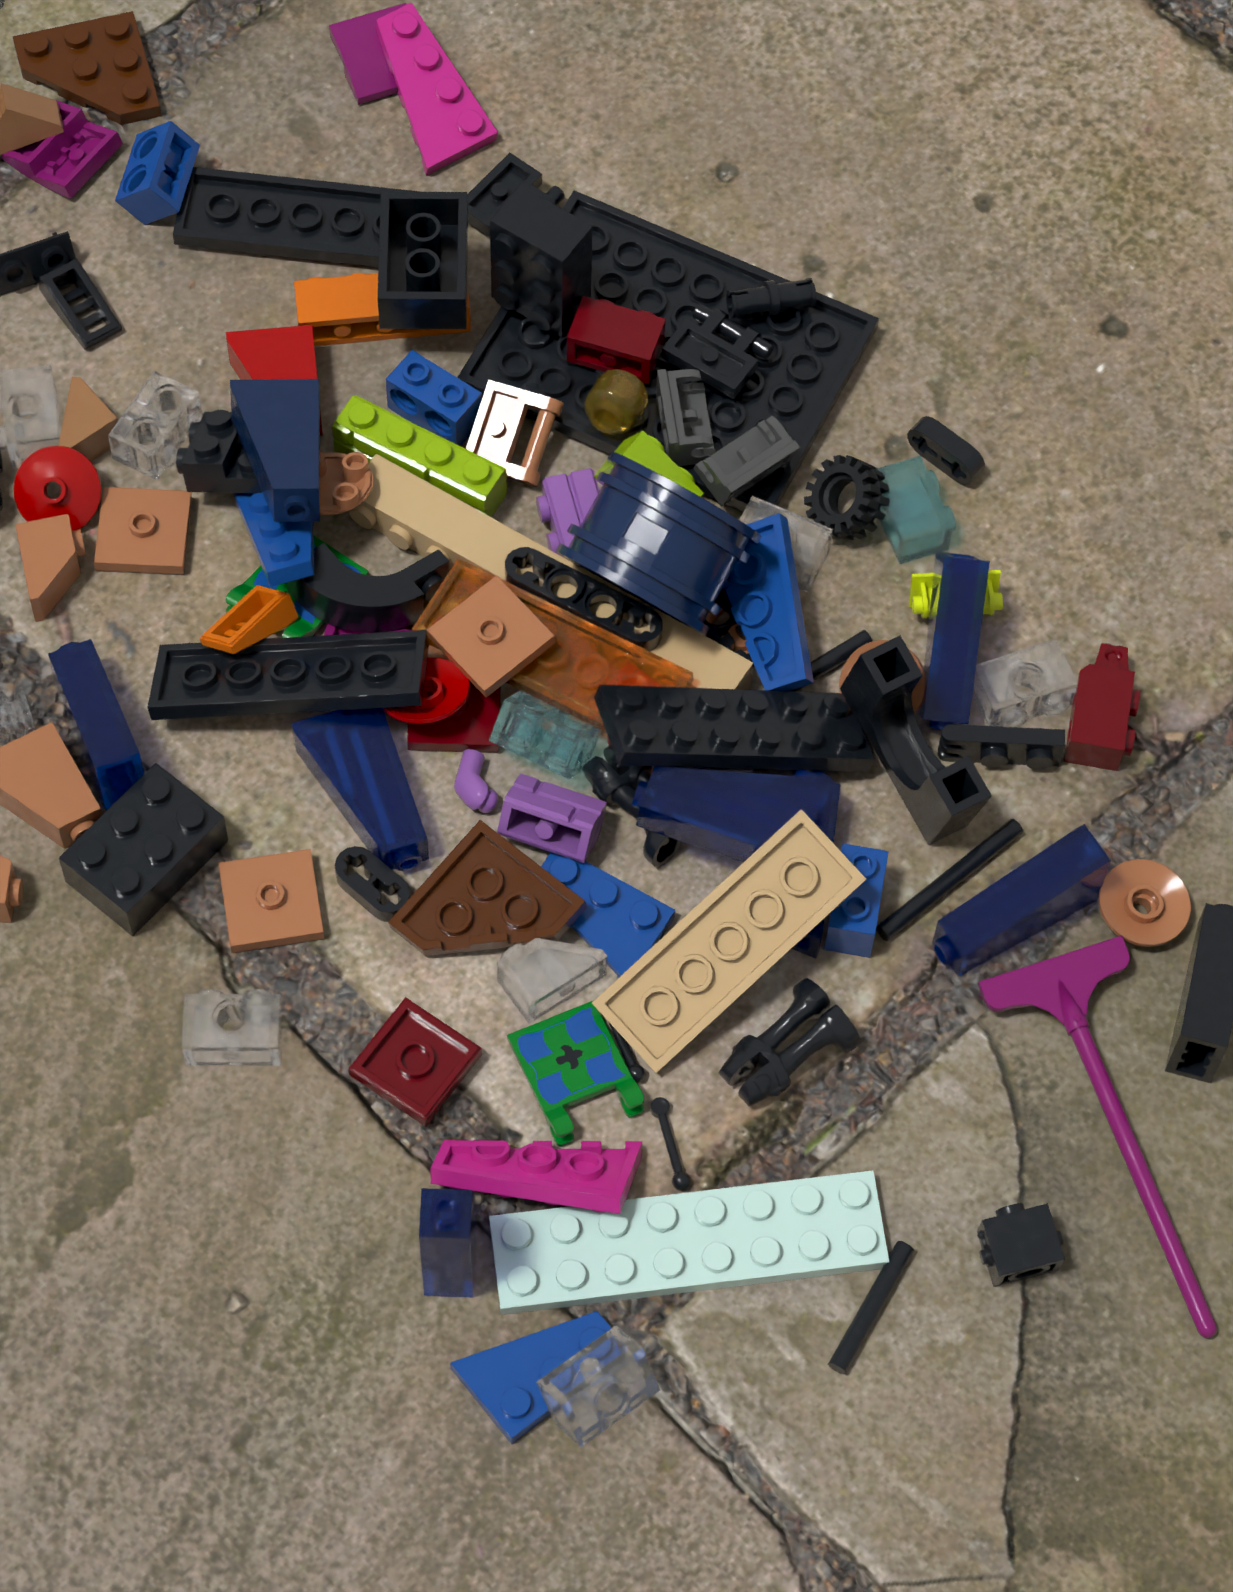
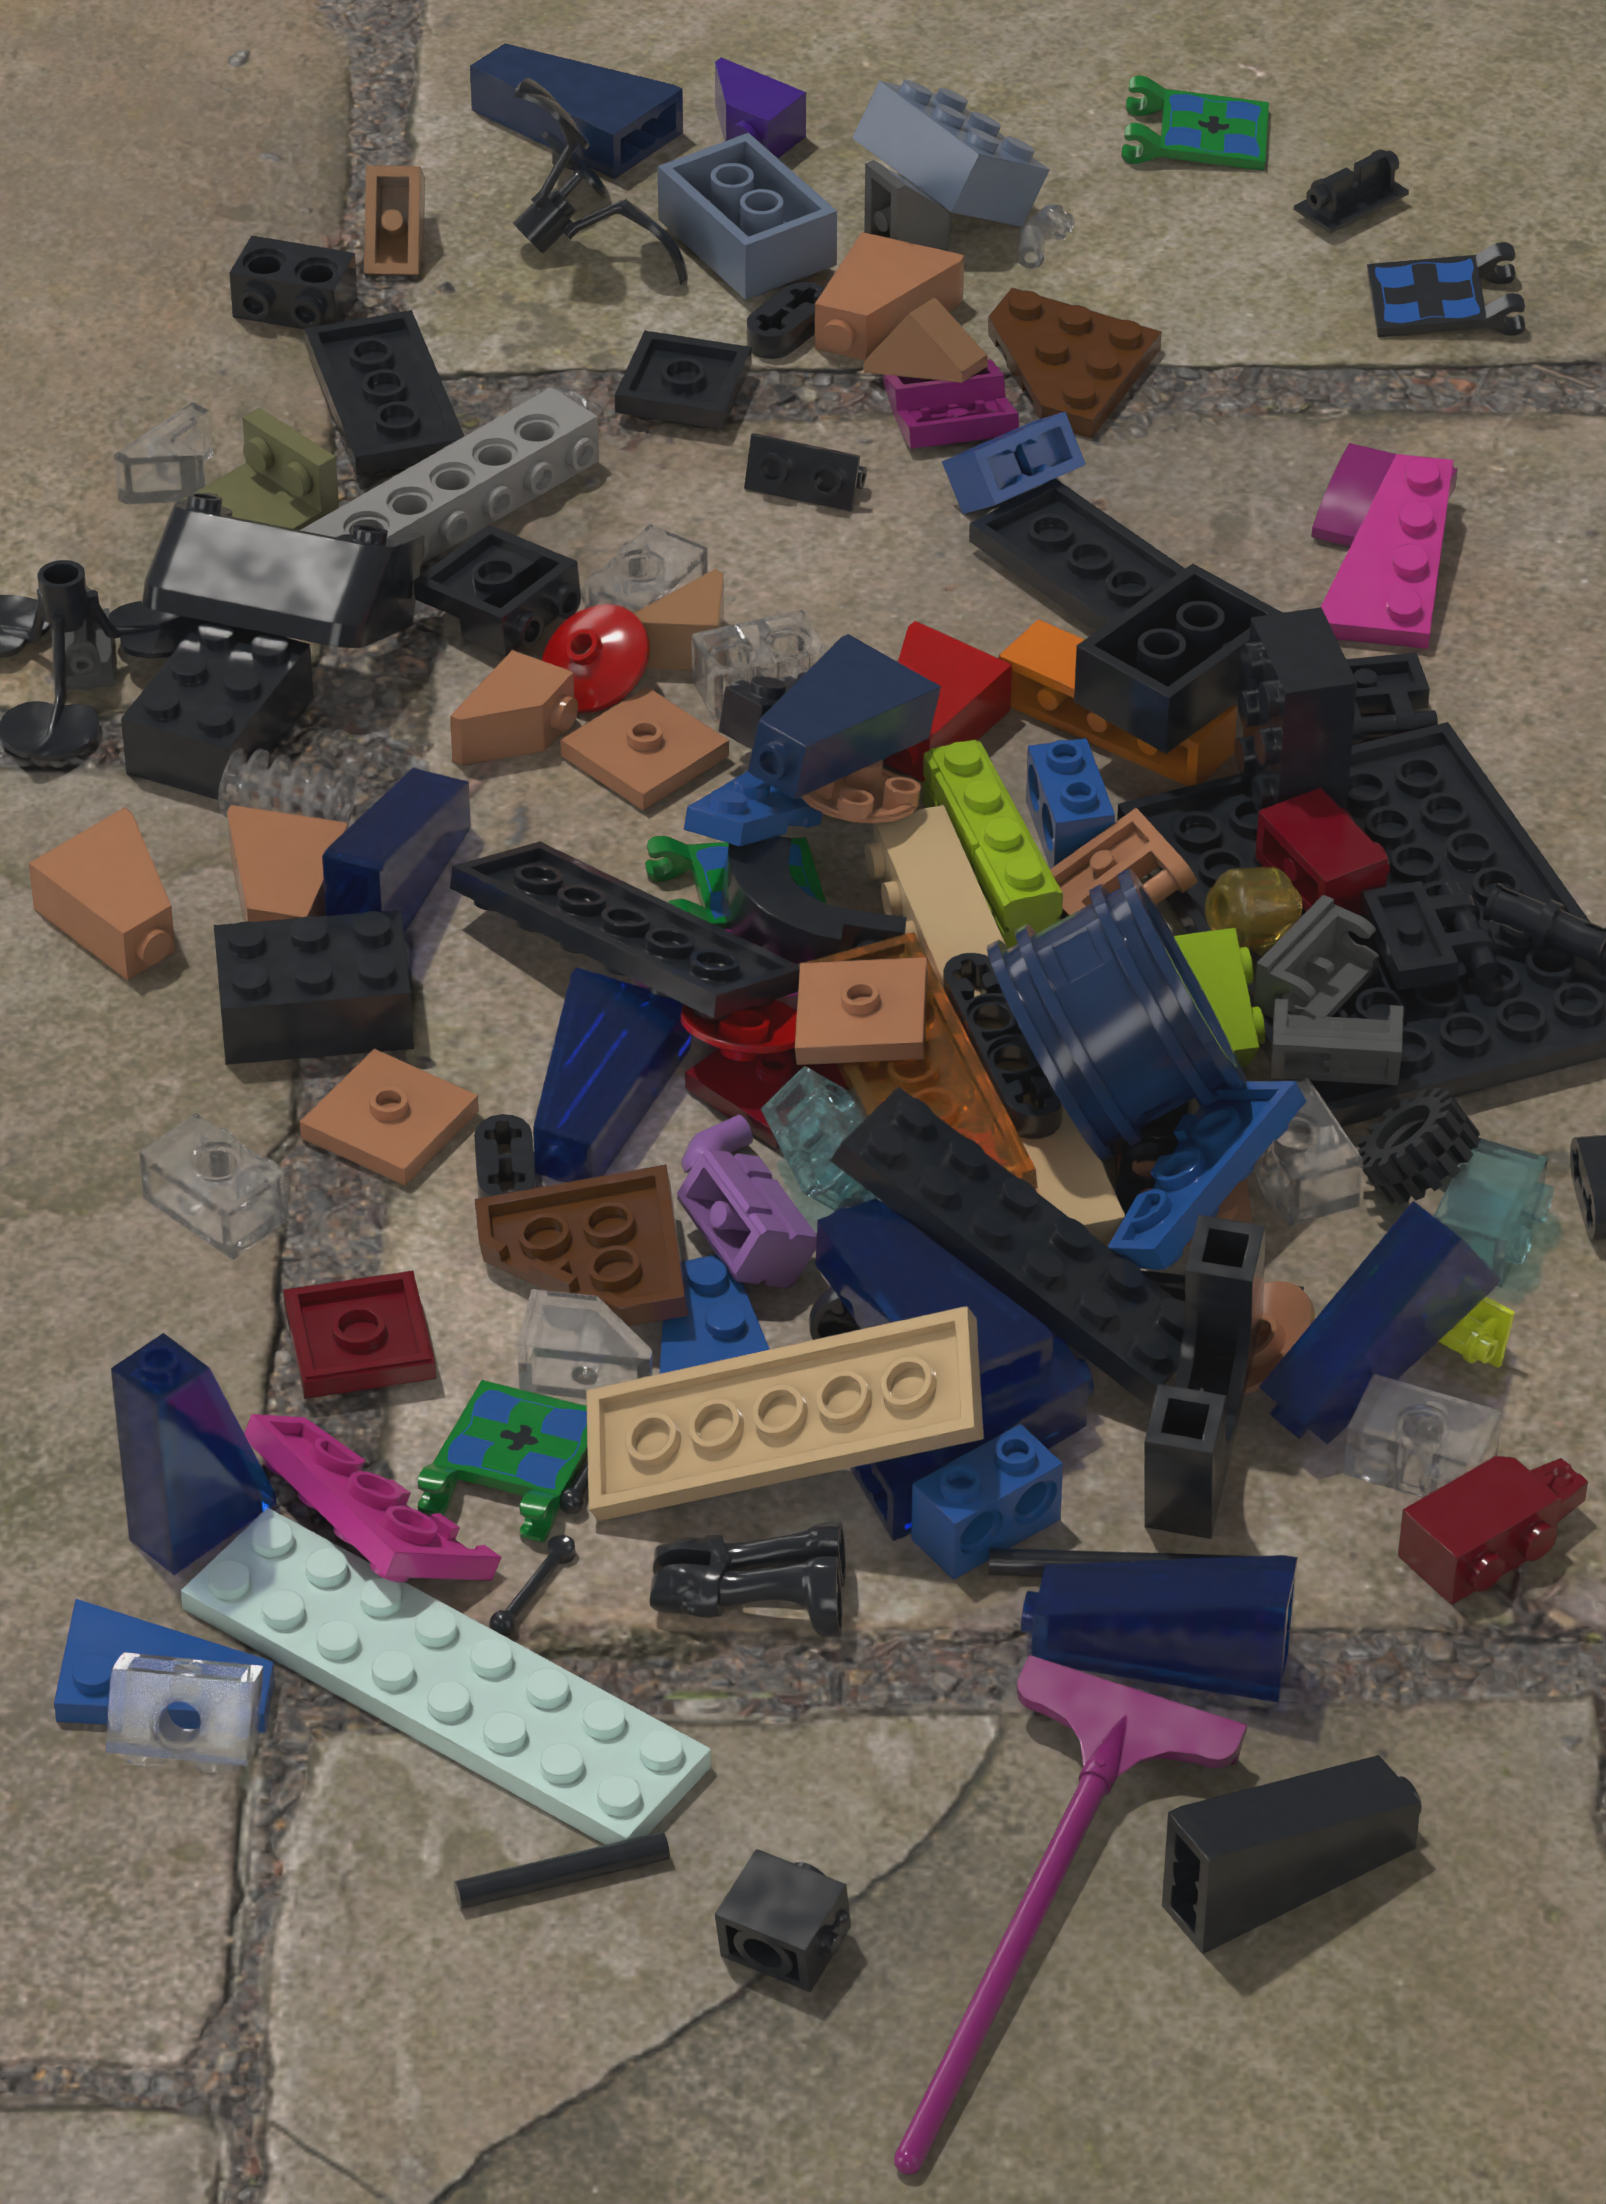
camera: 45 degrees right, 20 degrees down
(74, 273) = (817, 501): black slope -> none
(251, 620) = (662, 869): orange slope -> none
(1002, 745) = (1330, 1479): black hinge -> none
(1155, 889) = (1319, 1701): nougat dish -> none

